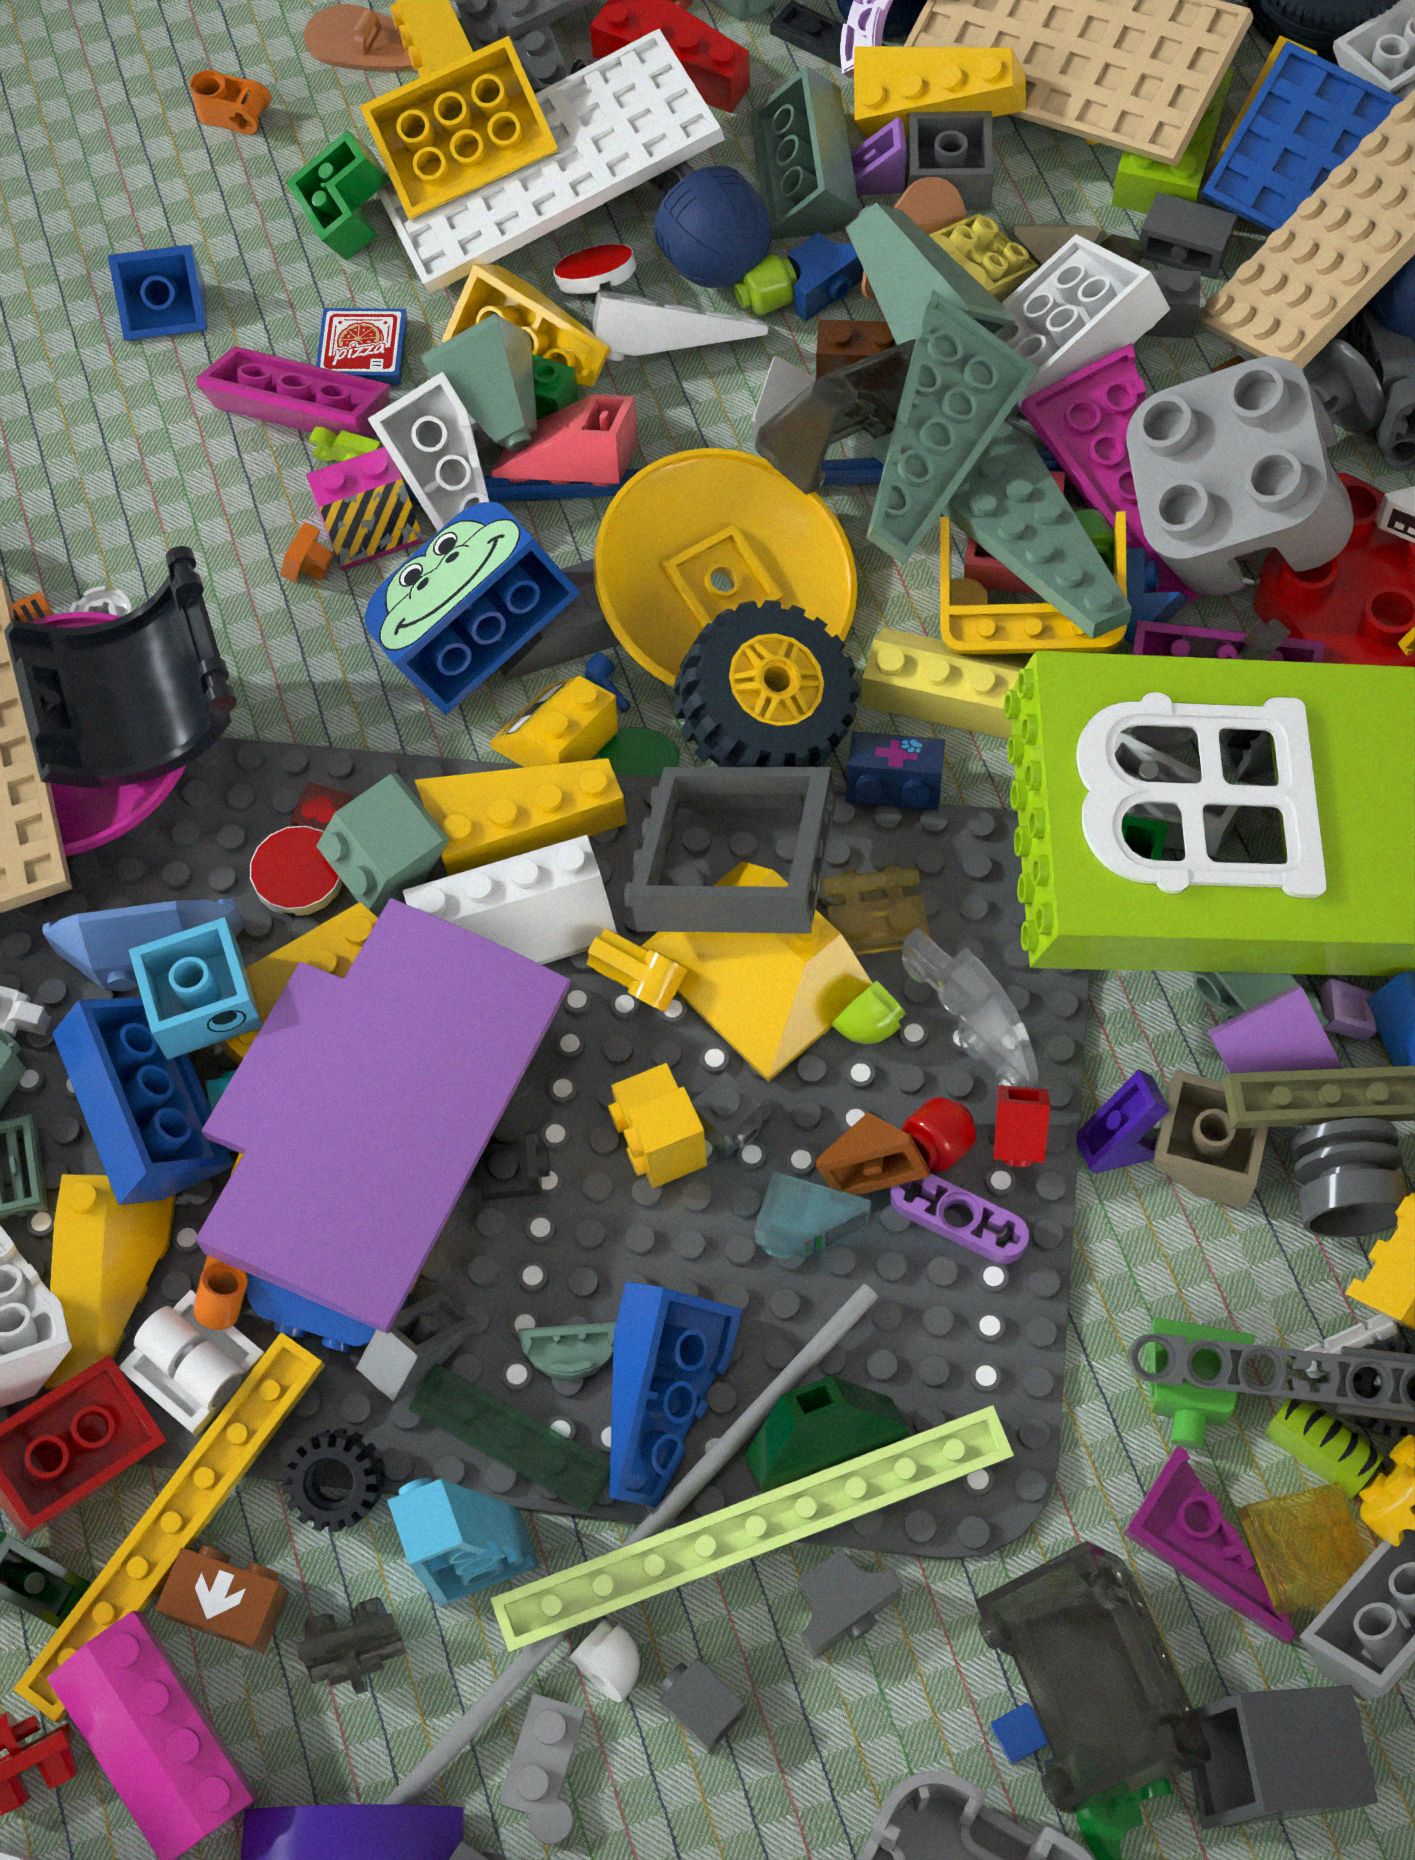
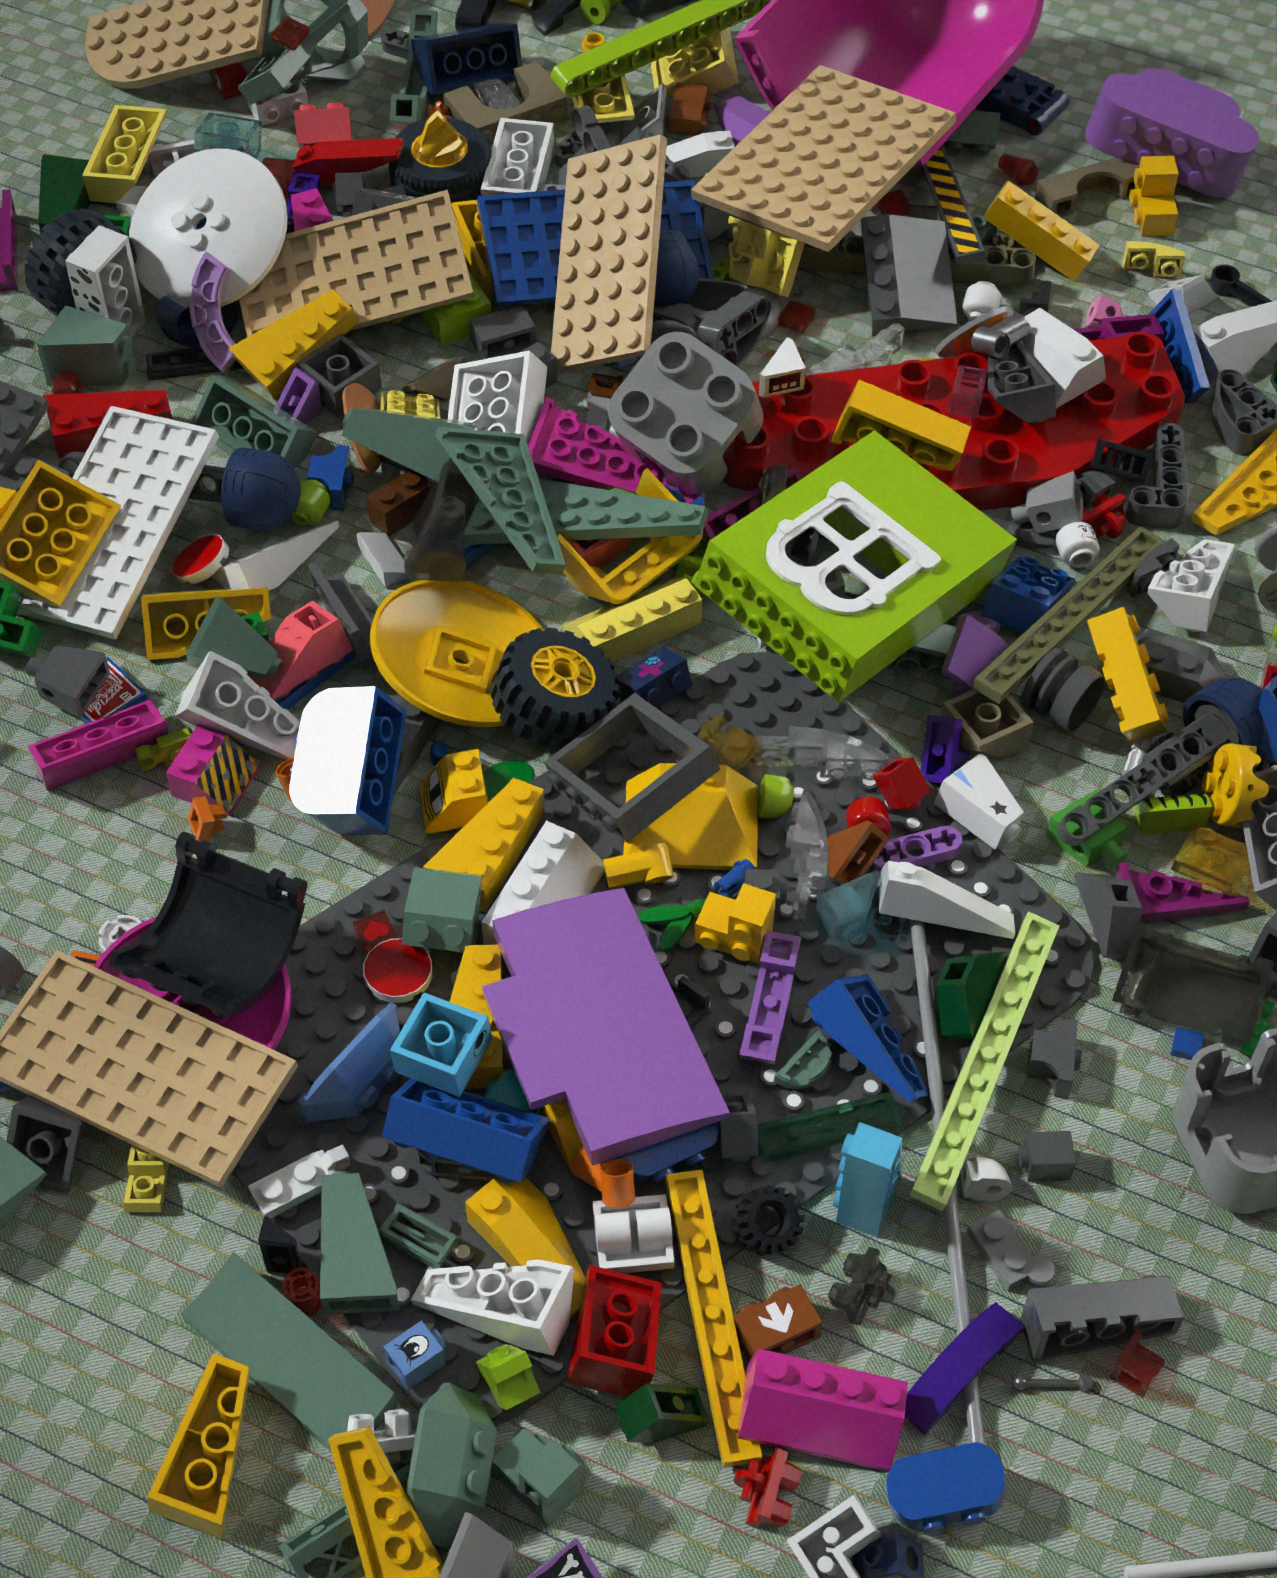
camera: 50 degrees left, 10 degrees down
(338, 303) = (69, 677): none -> dark grey torso
(606, 1244) = (770, 997): none -> medium lavender slope
(625, 1059) = (677, 916): none -> green piece
(670, 421) = (344, 604): none -> dark grey fence
(741, 1069) = (733, 879): none -> blue pin
(840, 1101) = (808, 852): none -> clear slope
(901, 1294) = (926, 897): none -> white wedge
(1098, 1225) = (981, 802): none -> white slope
(1104, 1489) = (1111, 910): none -> dark grey slope

